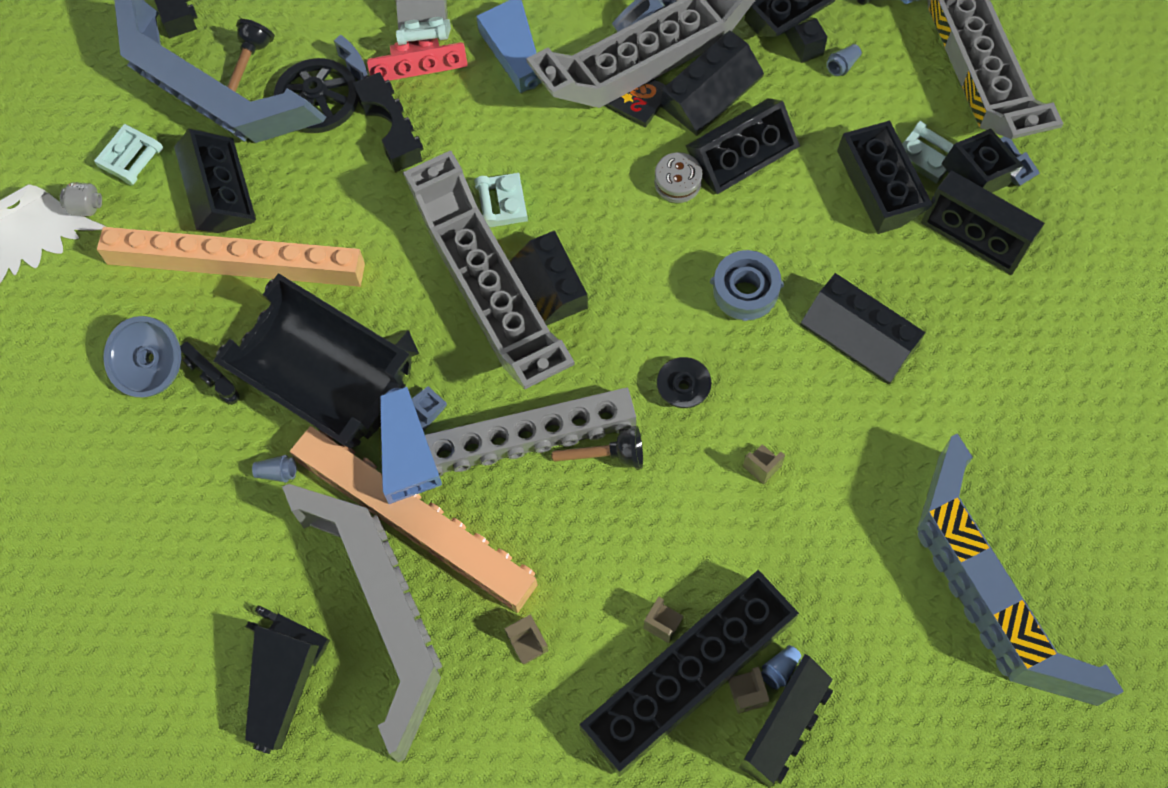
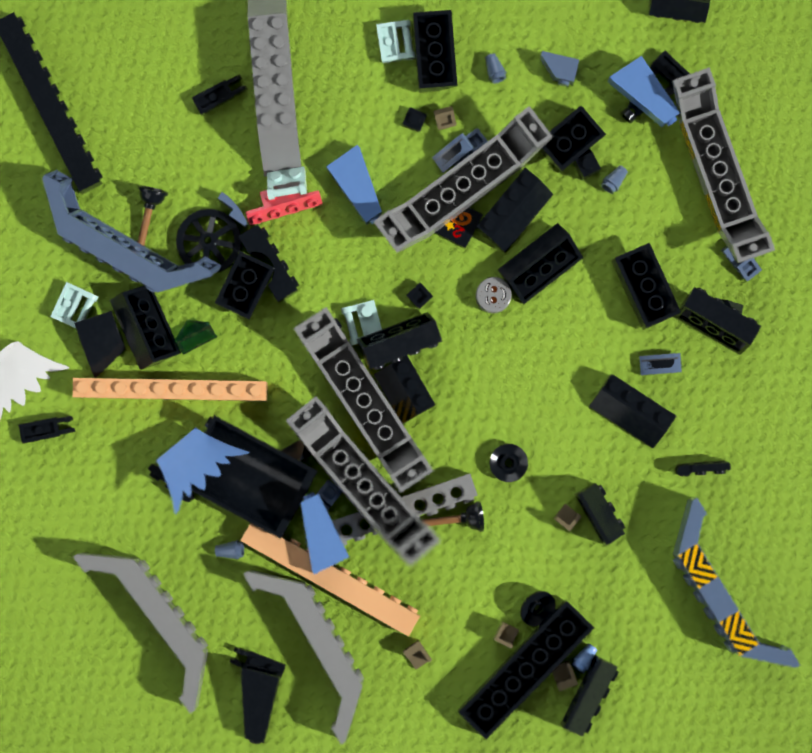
camera: 10 degrees left, 20 degrees up
(55, 295) = (44, 429): none -> black hinge
(80, 199) = (47, 350): light grey head -> none
(129, 352) = (118, 486): sand blue dish -> none
(152, 191) = (100, 341): none -> black slope
(161, 548) = (161, 612): none -> light grey slope
(237, 333) = (190, 460): none -> medium blue piece
(277, 199) = (194, 335): none -> clear green slope
(348, 137) = (244, 285): none -> black slope
(467, 375) = (362, 483): none -> light grey slope
(546, 211) = (399, 340): none -> black brick
(580, 172) = (419, 296): none -> black plate
(724, 581) = (537, 608): none -> black dish
(750, 268) = (564, 381): sand blue piece -> none
(811, 458) = (600, 513): none -> black slope
(899, 274) = (660, 364): none -> sand blue slope
(924, 158) = (677, 262): light aqua plate -> none
(962, 410) = (701, 468): none -> black hinge
(983, 161) = (718, 272): black brick -> none

